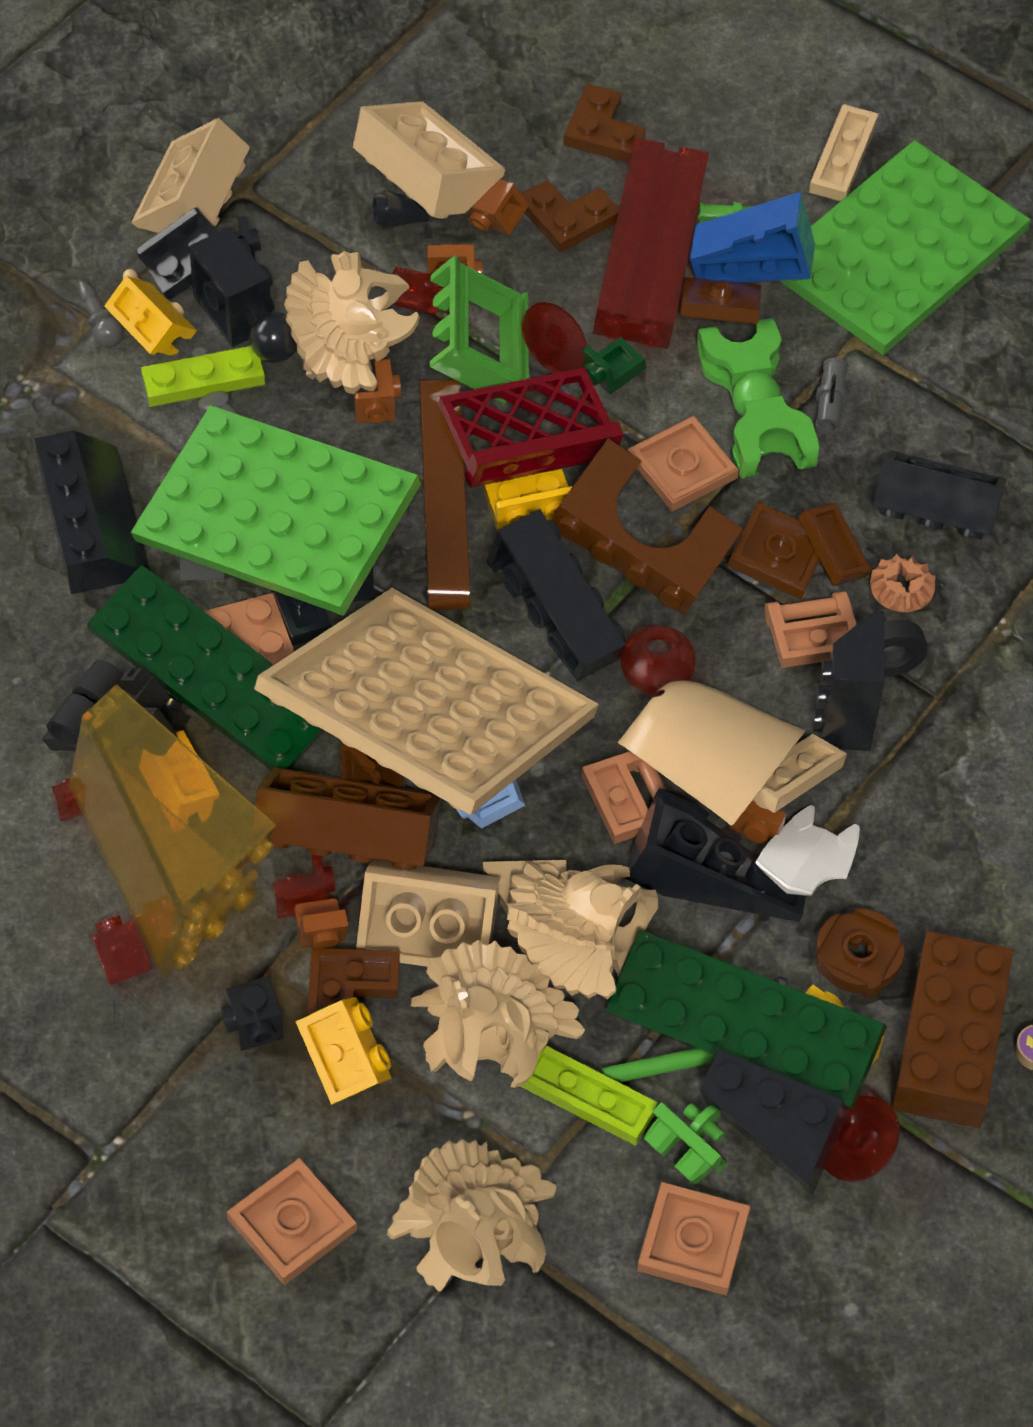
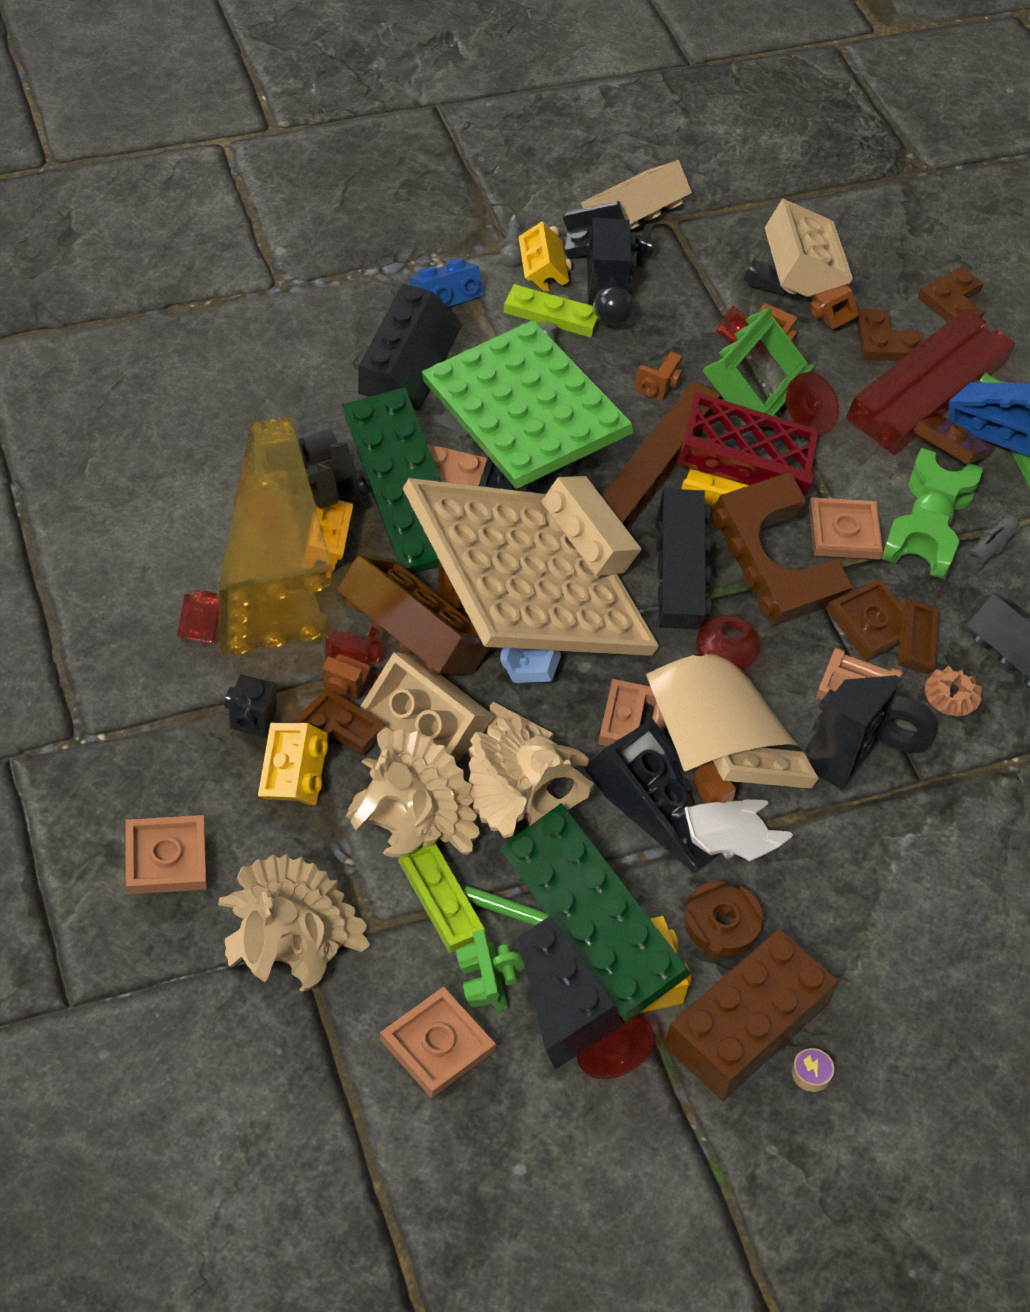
camera: 30 degrees right, 5 degrees down
(69, 403) = (453, 283): none -> blue bracket
(339, 325) = (658, 315): tan piece -> none
(444, 611) = (591, 525): none -> tan brick
(613, 365) = (841, 442): dark green bracket -> none

